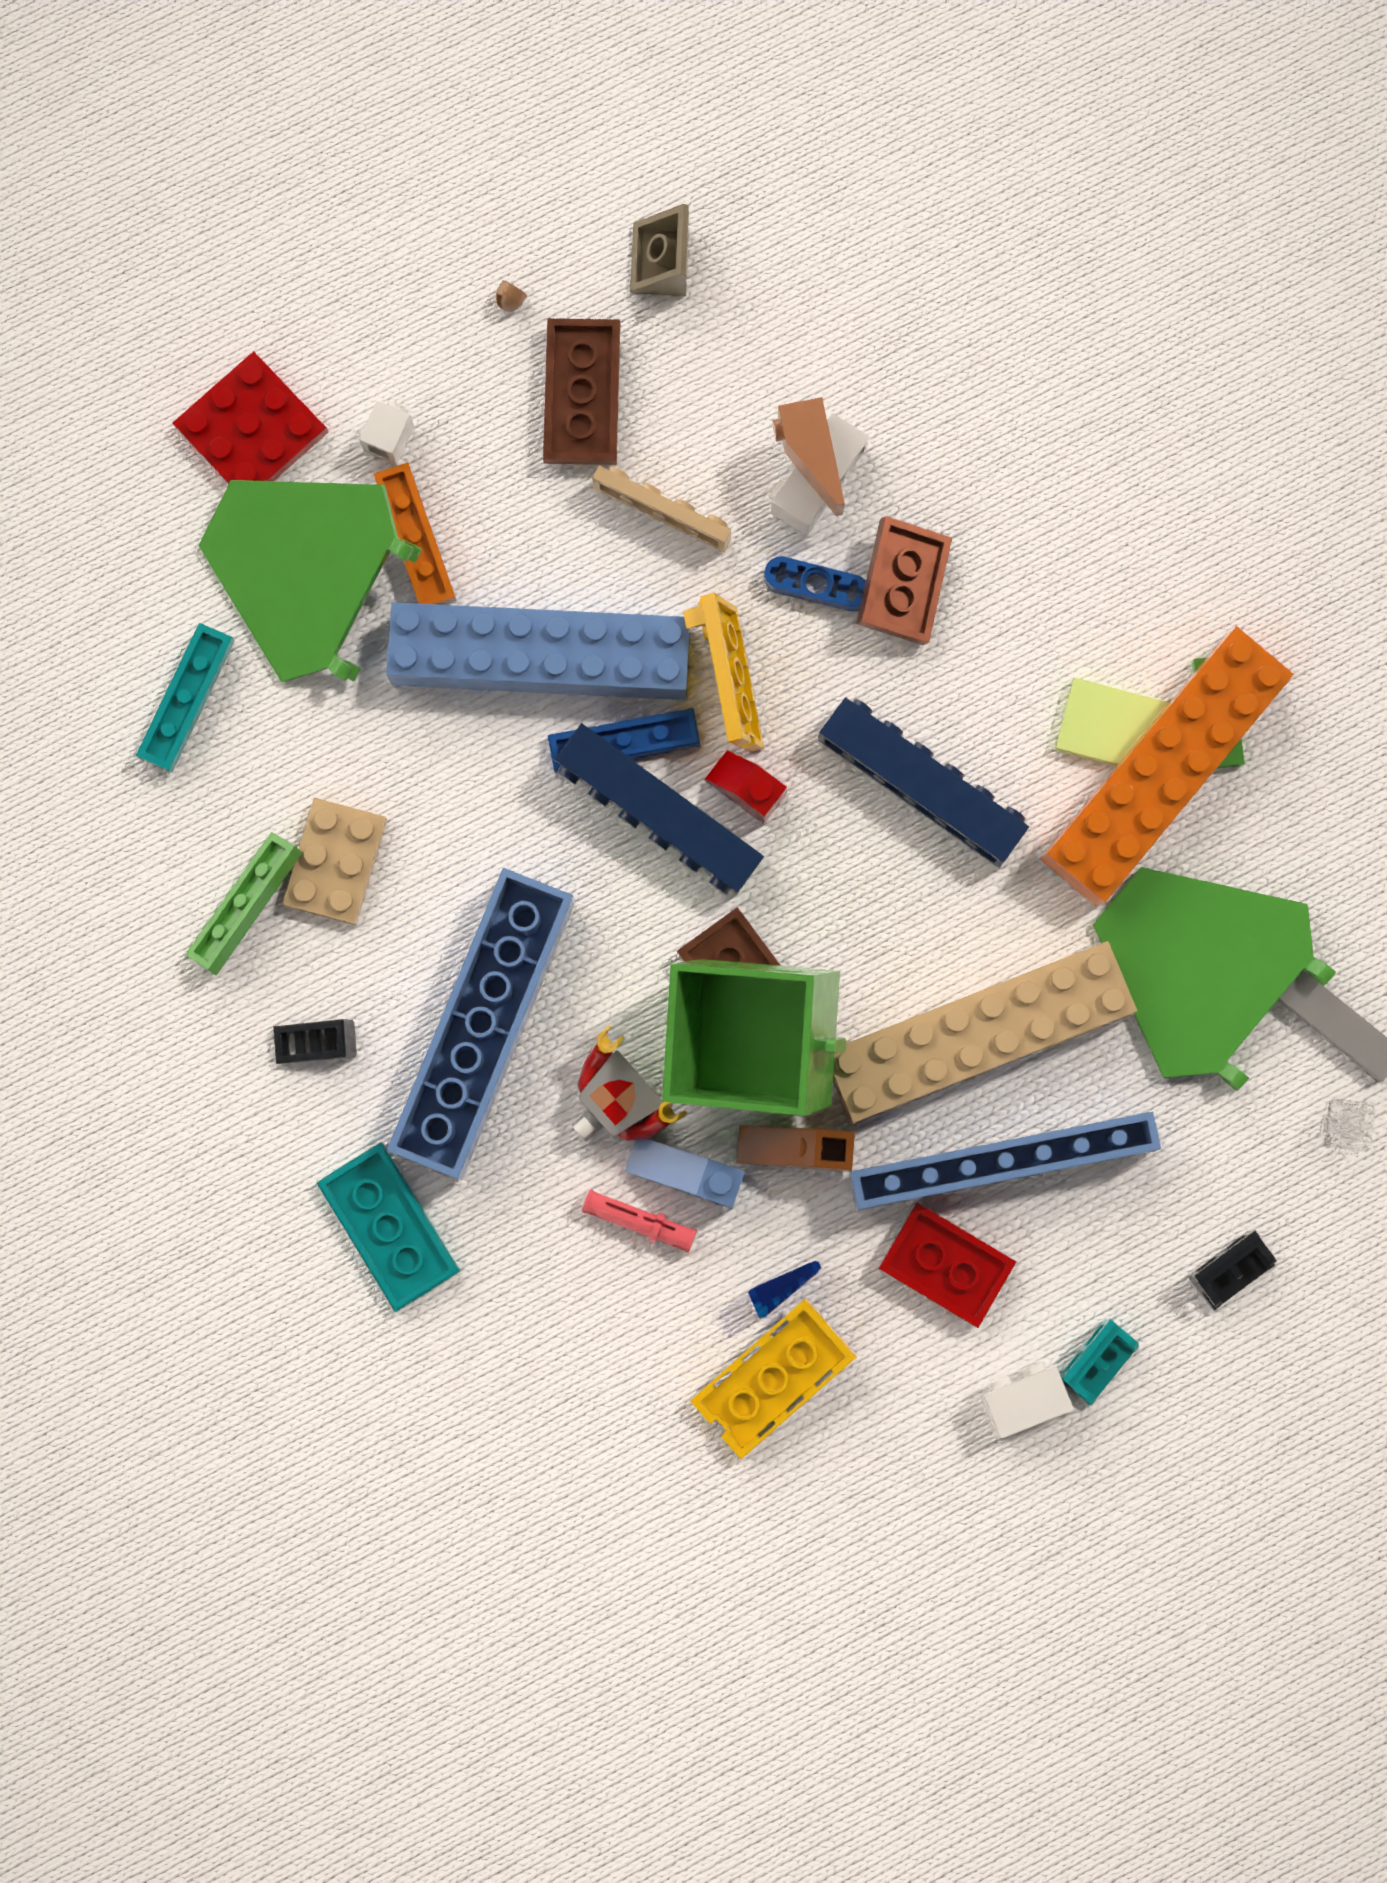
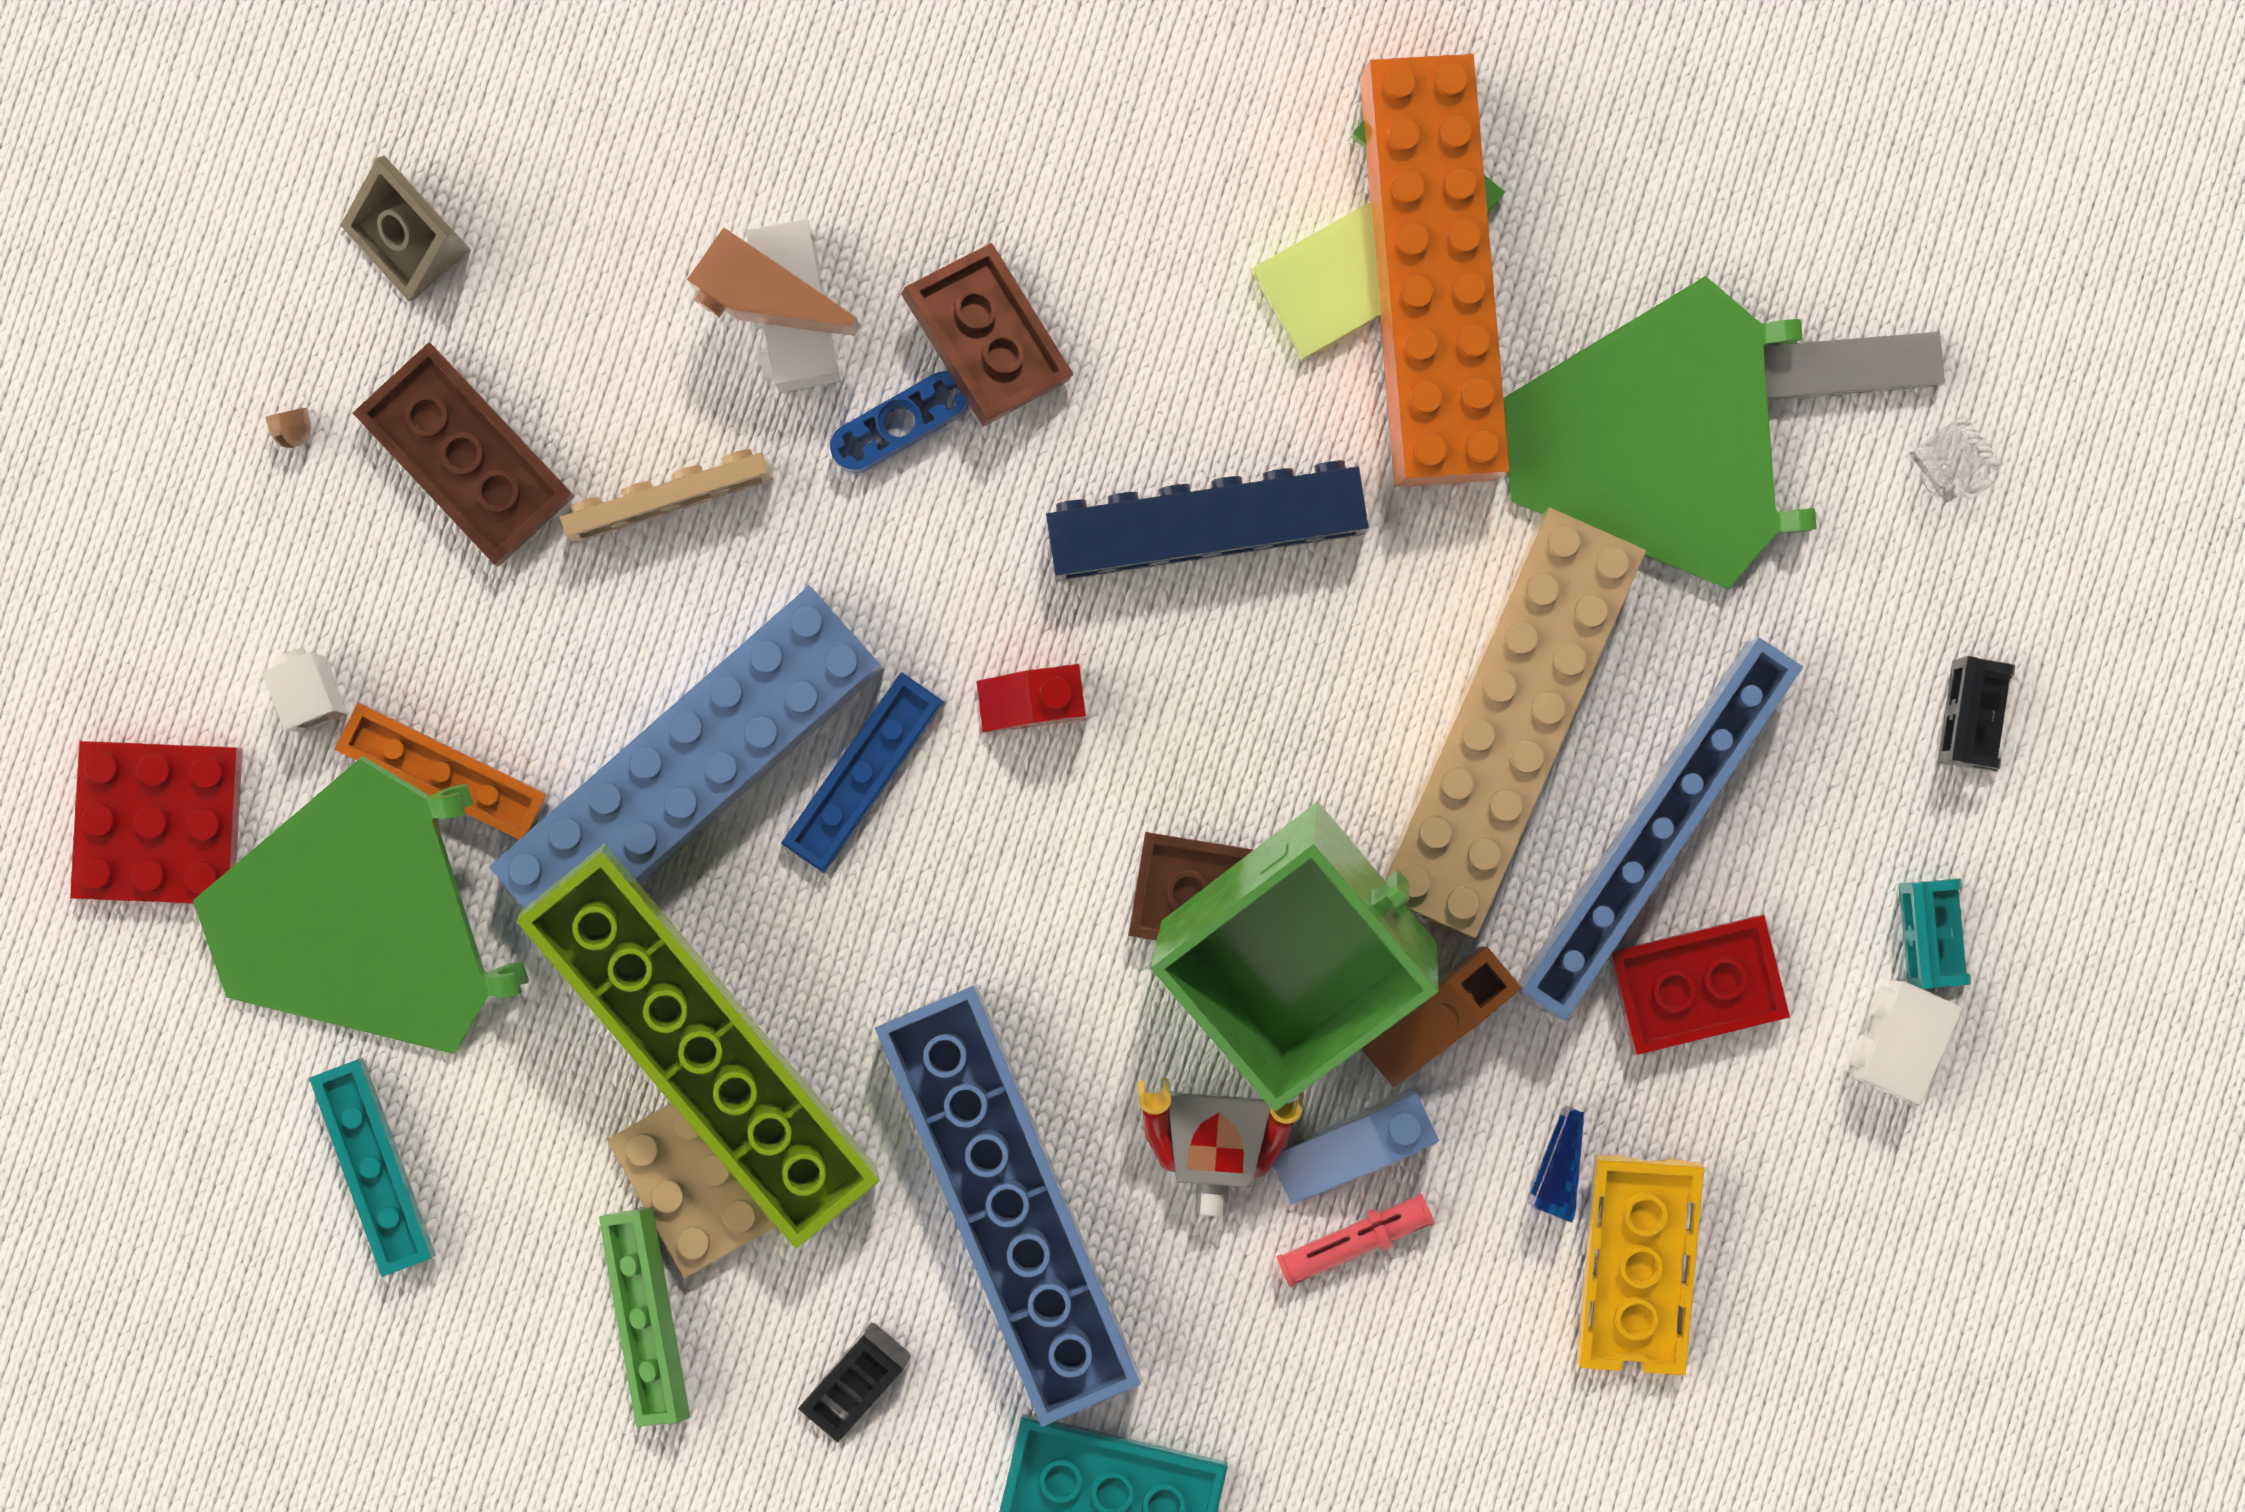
camera: 50 degrees left, 5 degrees up
(406, 790) = (699, 1045): none -> lime brick
(659, 809) = (971, 811): dark blue brick -> none
(723, 630) = (852, 562): yellow piece -> none

